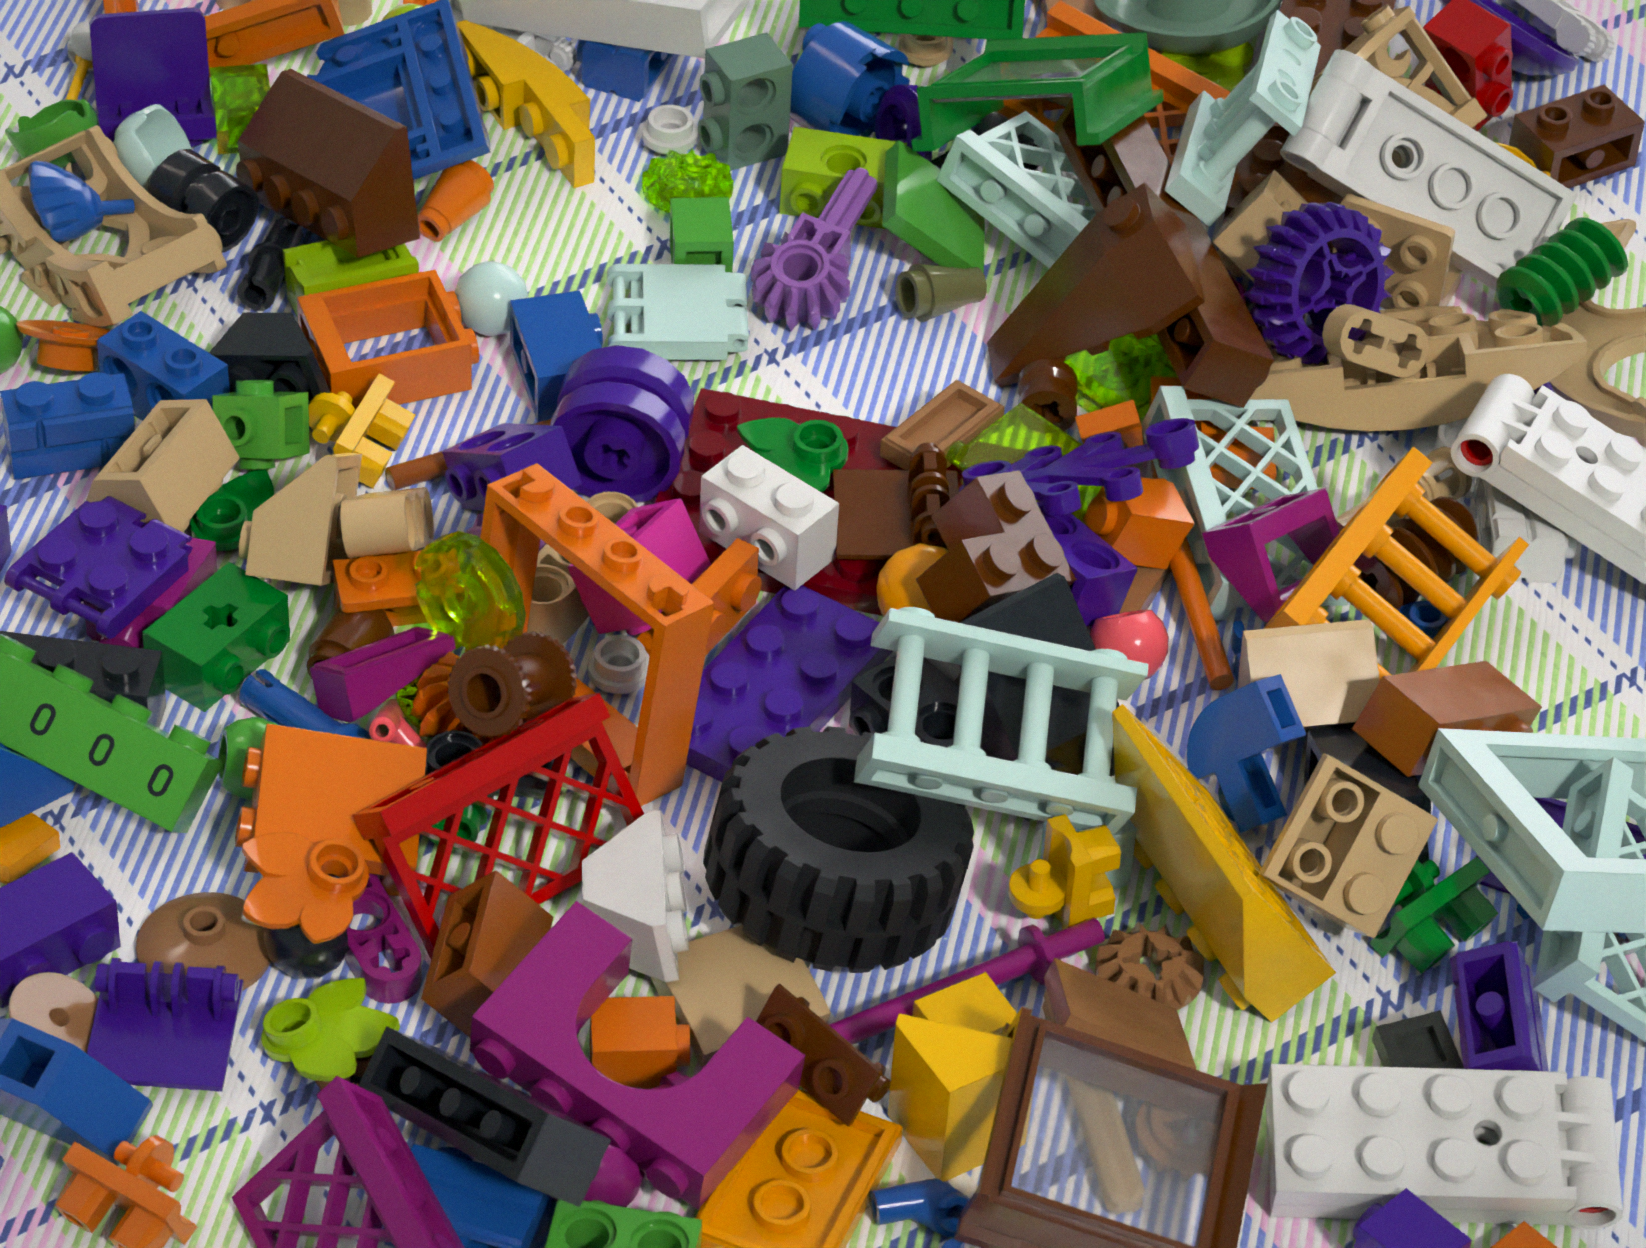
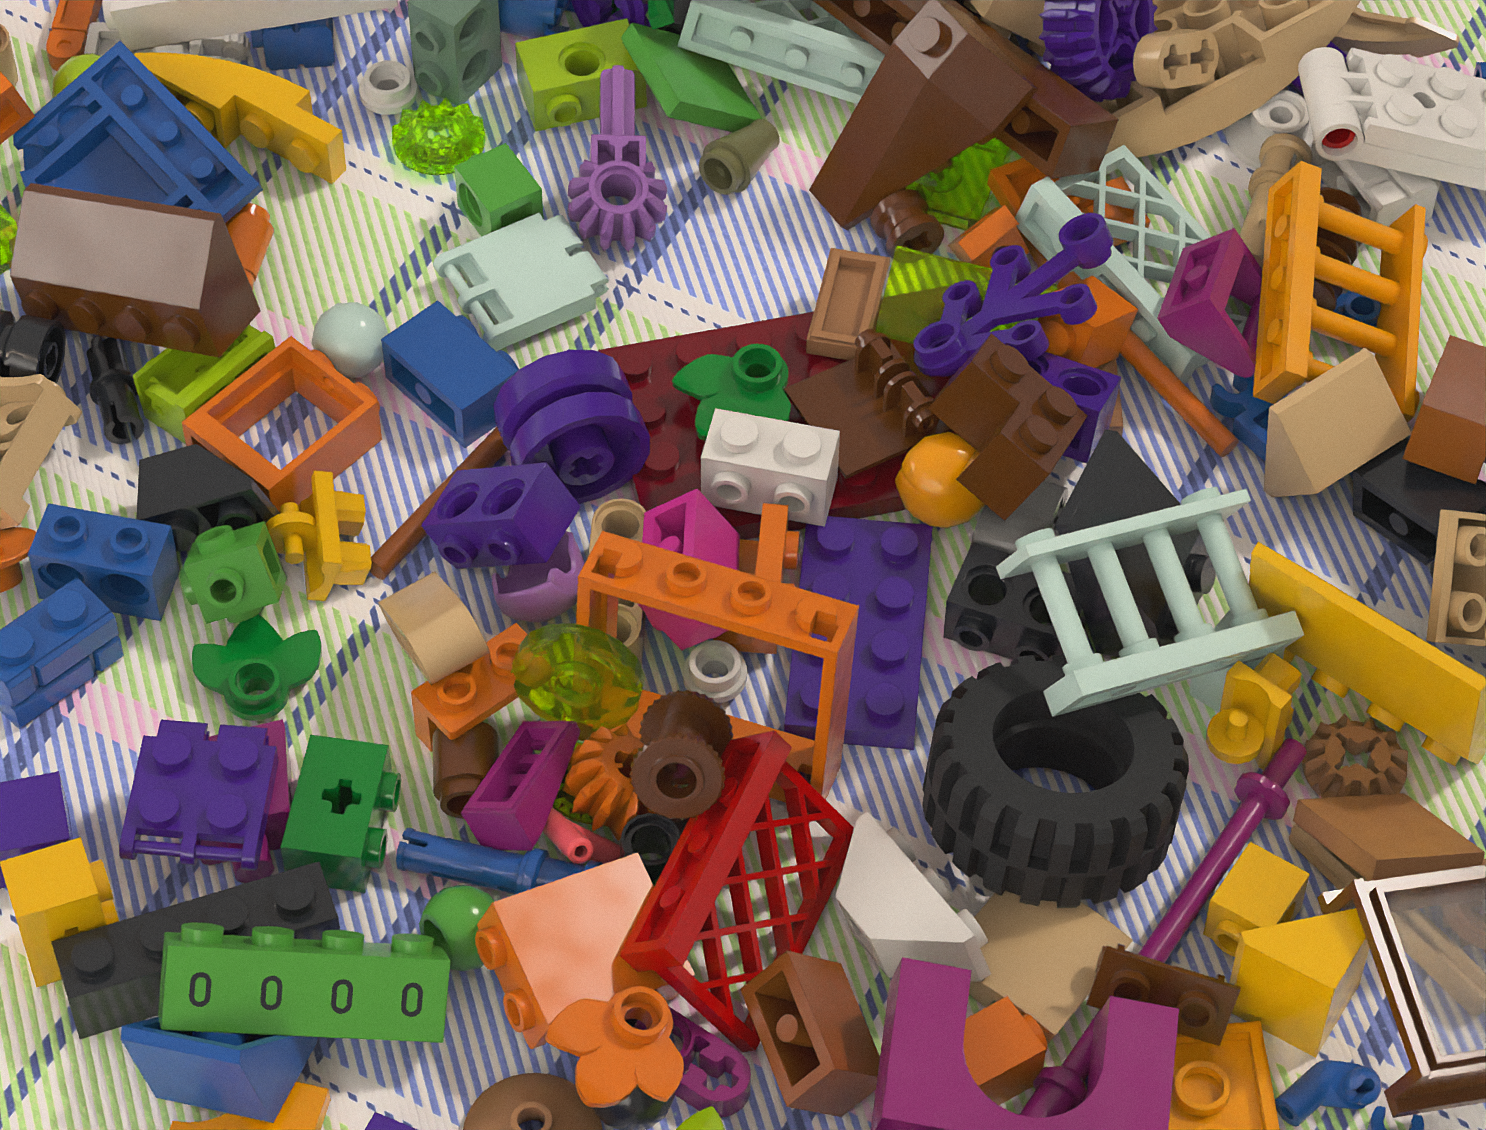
camera: 25 degrees left, 10 degrees up
(169, 463) = (181, 665): tan slope -> none
(300, 526) = (362, 668): tan slope -> none
(1135, 634) = (1152, 440): coral piece -> none
(1230, 744) = (1310, 508): blue brick -> none

